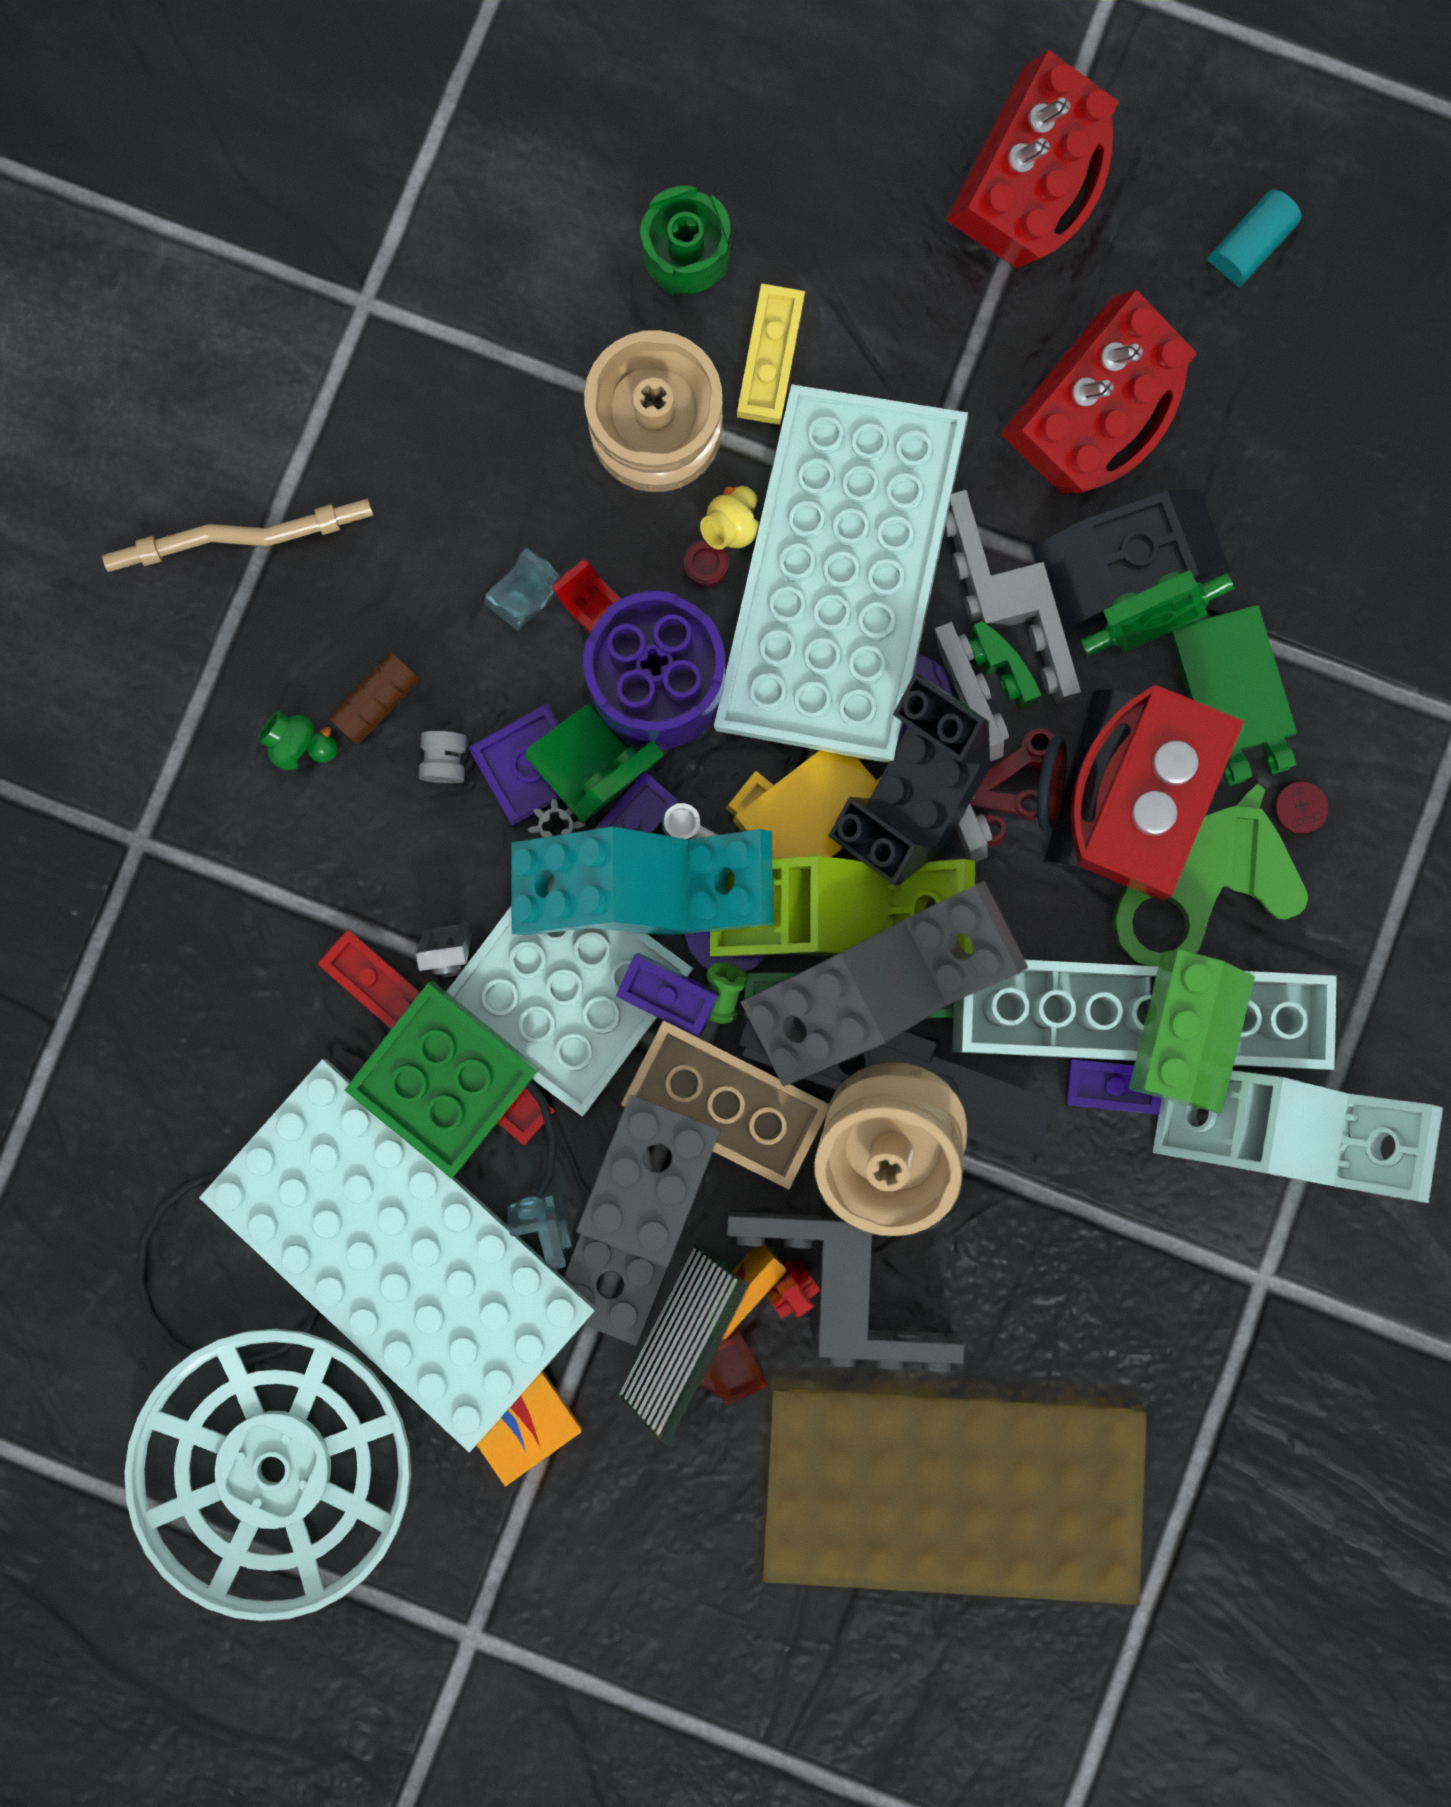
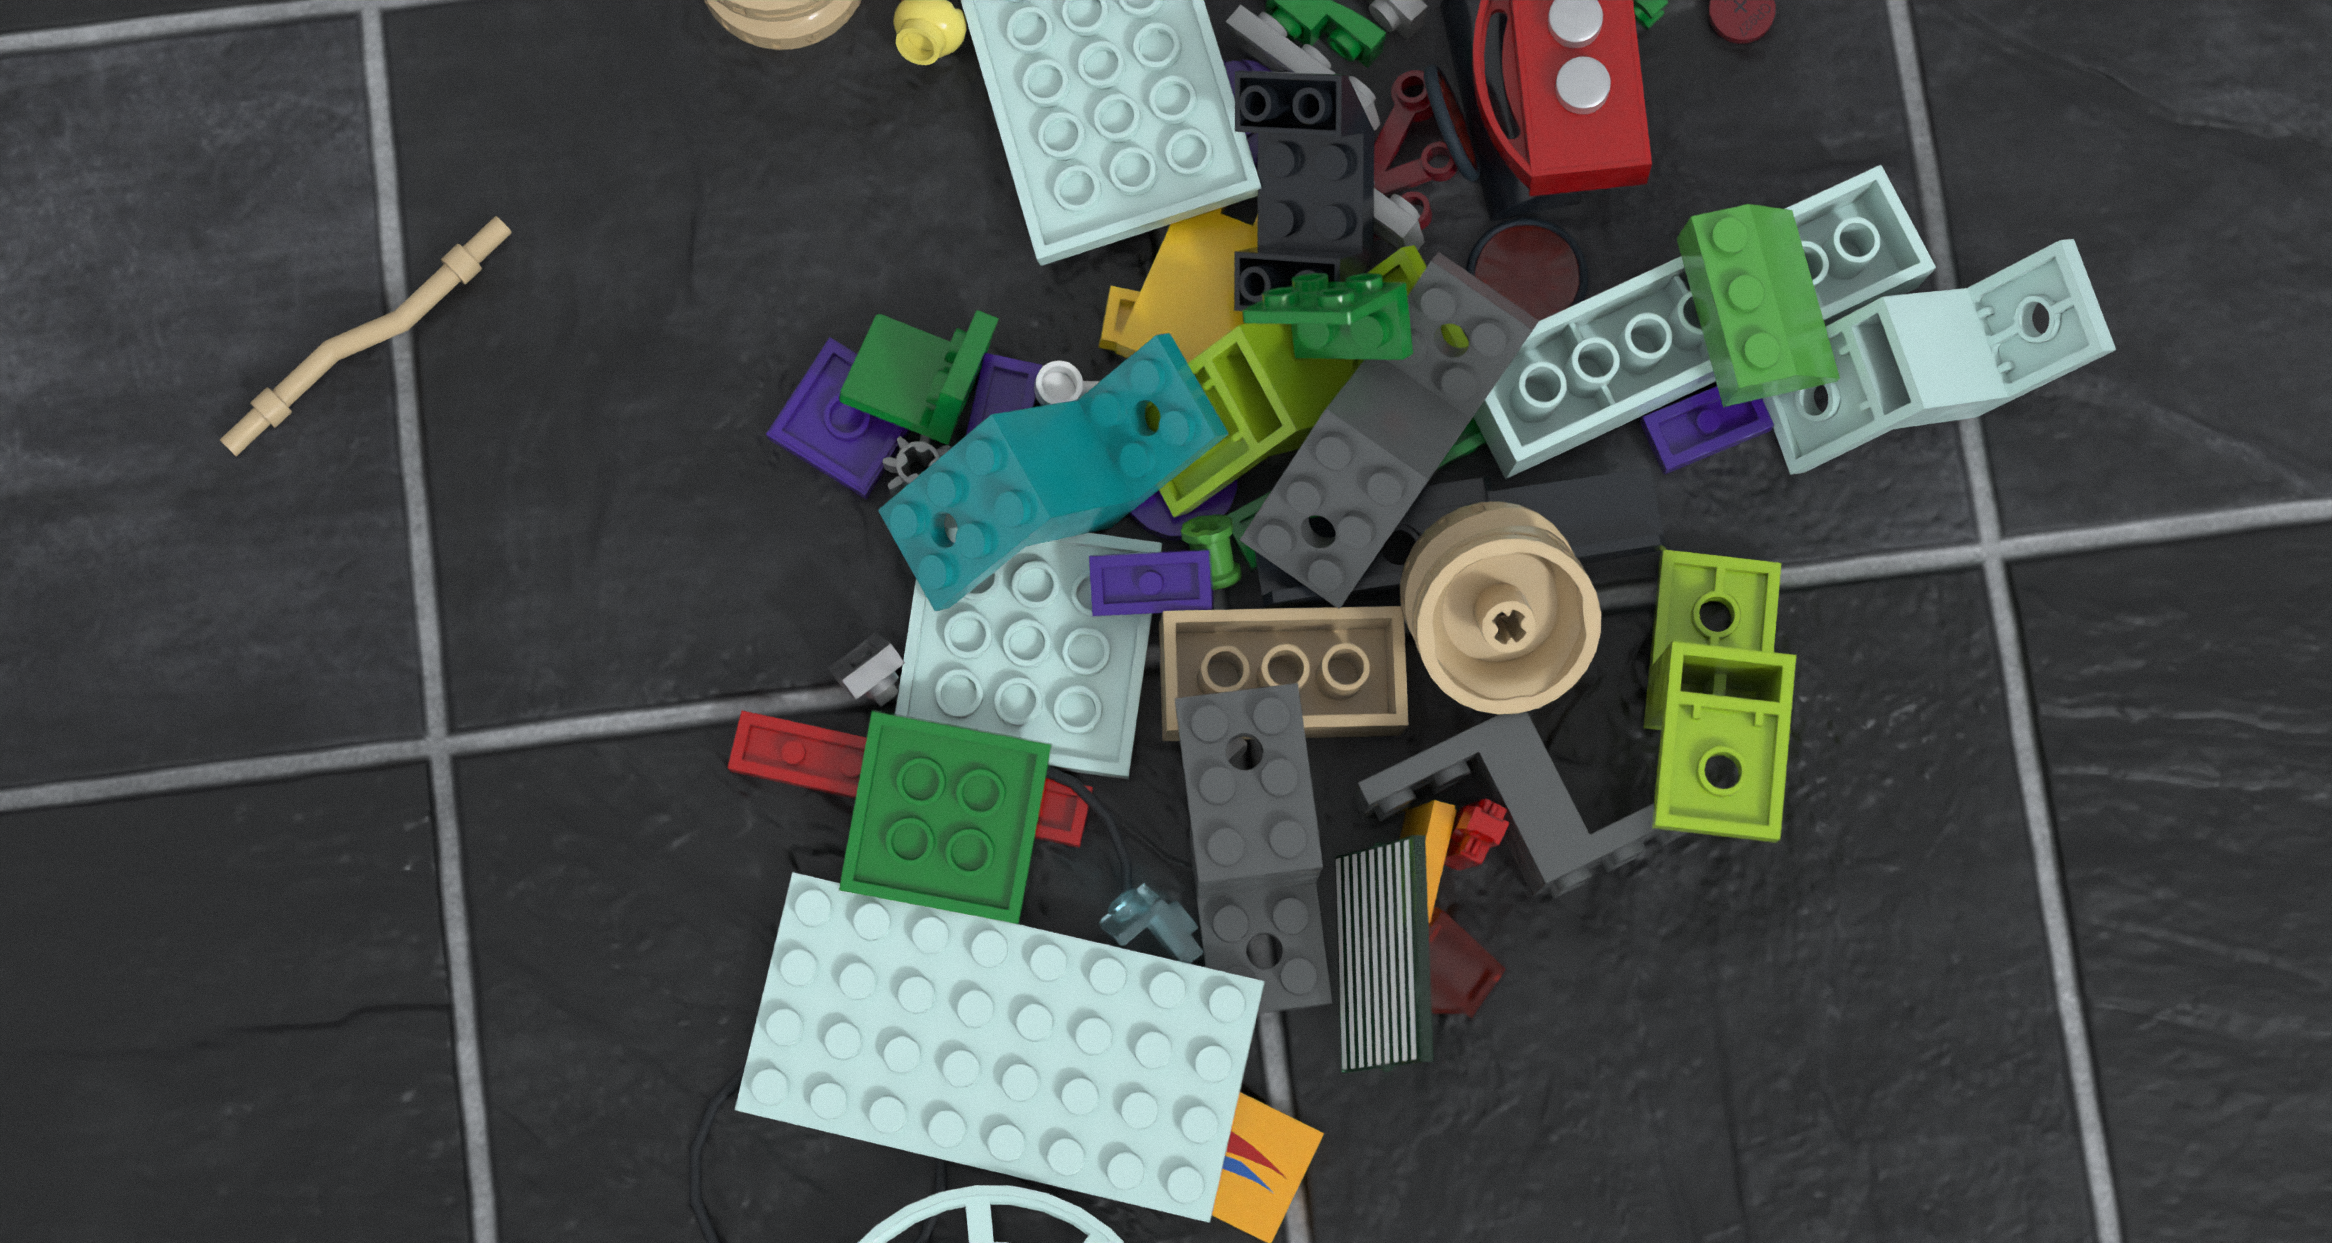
camera: 30 degrees left, 5 degrees down
(291, 736) = (558, 526): green animal -> none
(374, 698) = (627, 435): reddish brown axle -> none
(442, 757) = (743, 459): light grey wheel -> none
(523, 590) = (734, 223): clear light blue bracket -> none
(584, 594) = (817, 195): red bracket -> none
(692, 678) = (934, 274): dark purple brick -> none
(705, 565) = (925, 90): dark red tile -> none
(890, 887) = (1340, 318): none -> green bracket
(955, 1496) = (1783, 976): clear yellow plate -> none
(1011, 1292) = (1719, 697): none -> lime bracket
(1048, 914) = (1531, 265): none -> clear red wheel
(1232, 851) = (1692, 96): bright green animal -> none

